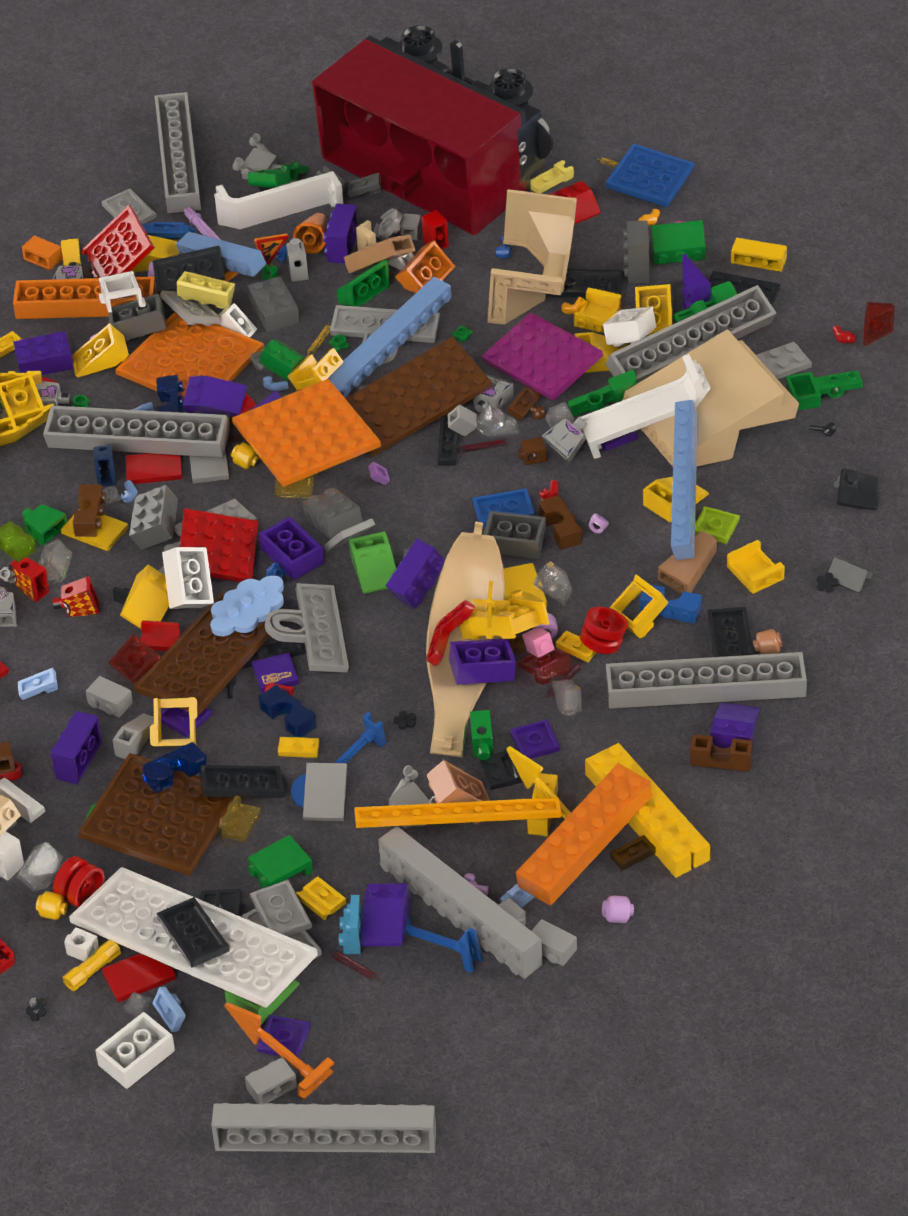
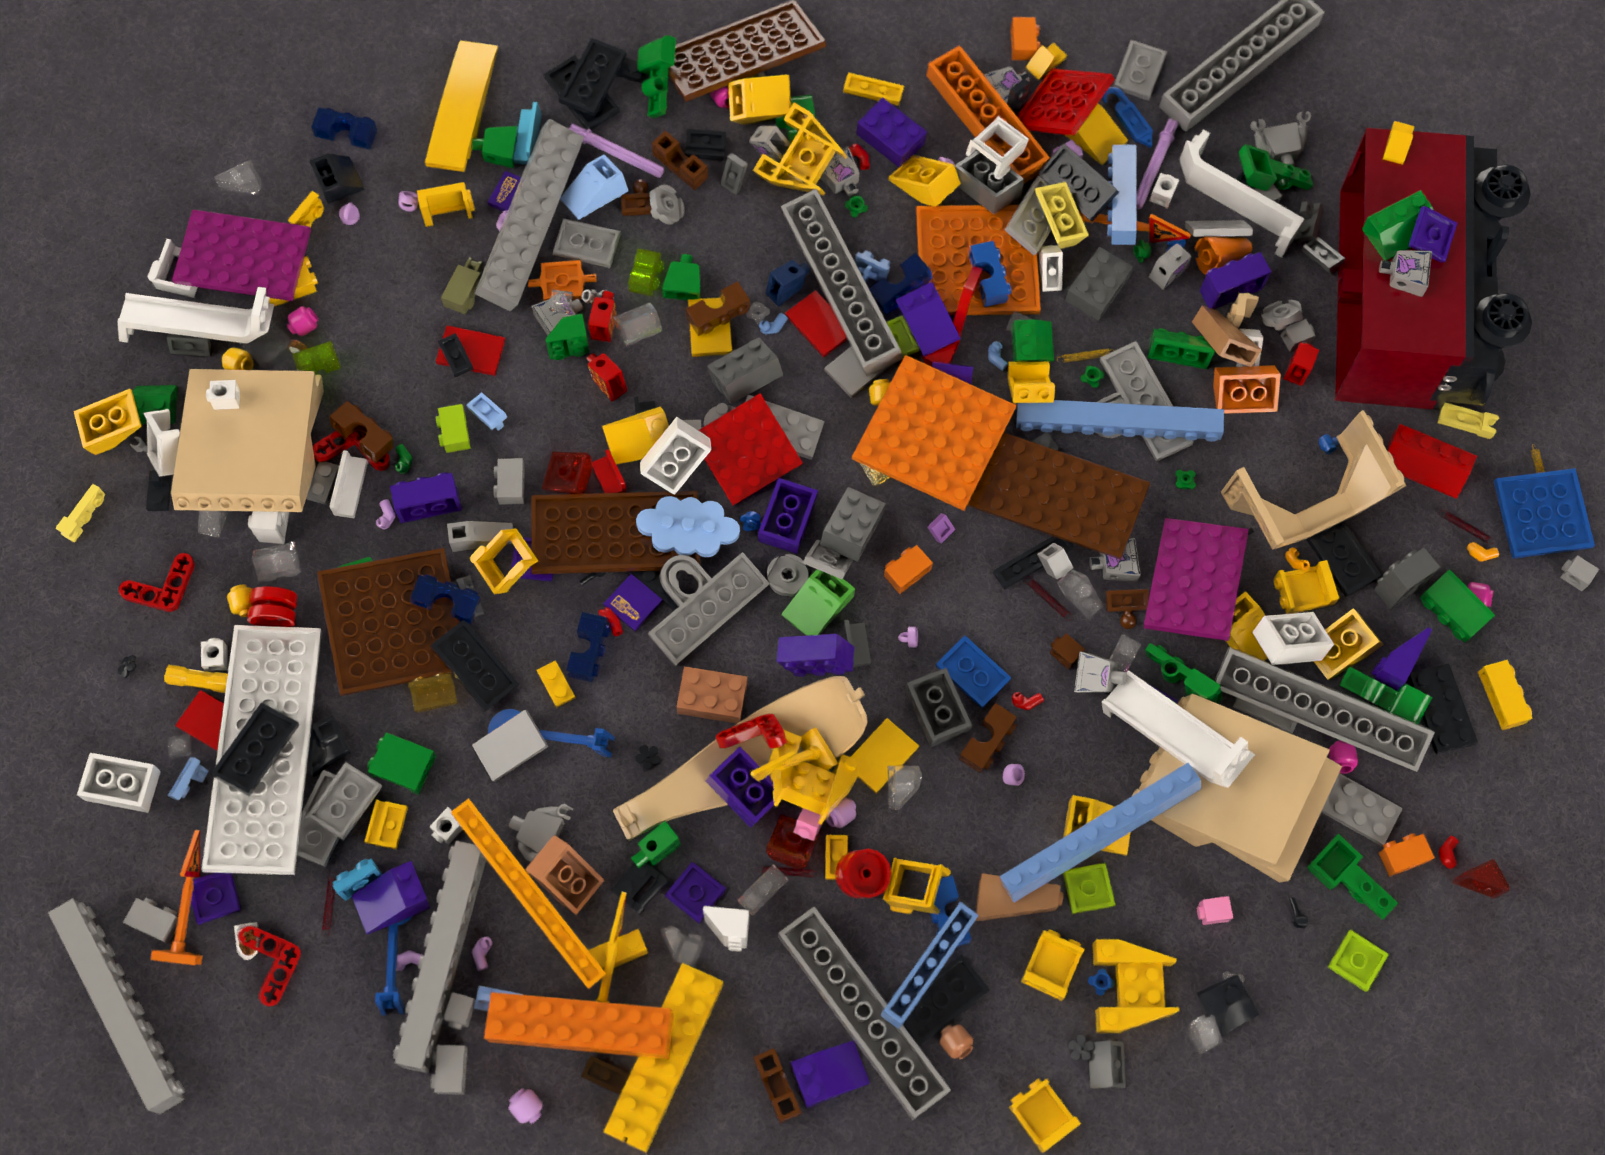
camera: 50 degrees right, 25 degrees up
(27, 755) = (405, 459): none -> green arm
(28, 602) = (568, 338): none -> green slope
(31, 711) = (454, 428): none -> lime brick
(64, 786) = (388, 515): none -> lavender arm
(197, 347) = (995, 289): none -> blue arch
(215, 361) = (966, 296): none -> red beam
(235, 235) = (1161, 196): none -> white brick
(298, 219) = (1219, 228): none -> light grey tile
(339, 68) = (1398, 142): none -> yellow slope
(340, 1024) = (243, 951): none -> rock
(344, 569) = (784, 564): none -> light grey plate
(356, 859) = (444, 818): none -> white brick
(373, 1007) = (278, 955): none -> red beam
(391, 656) = (712, 695): none -> nougat brick
(393, 505) = (907, 569): none -> orange brick
(400, 94) = (1393, 226): none -> green slope
(422, 80) = (1433, 233): none -> dark purple tile
(437, 106) = (1409, 271): none -> light grey torso
(444, 929) = (406, 958): none -> lavender arm
(446, 527) = (910, 637): none -> lavender tile
(569, 763) = (682, 947): none -> clear slope
(580, 716) = (729, 926): none -> white slope
(614, 218) = (1466, 526): none -> dark red piece
(704, 615) = (929, 965): none -> medium blue brick
(706, 179) = (1578, 572): none -> light grey brick
(787, 465) = (1215, 910): none -> bright pink brick
(788, 548) = (1107, 982): none -> blue plate
(803, 529) = (1138, 985): none -> yellow wedge
(827, 354) = (1406, 854): none -> orange brick
(858, 624) = (1043, 1115): none -> yellow panel
(869, 510) = (1204, 1033): none -> clear slope
(880, 415) = (1358, 960): none -> lime tile

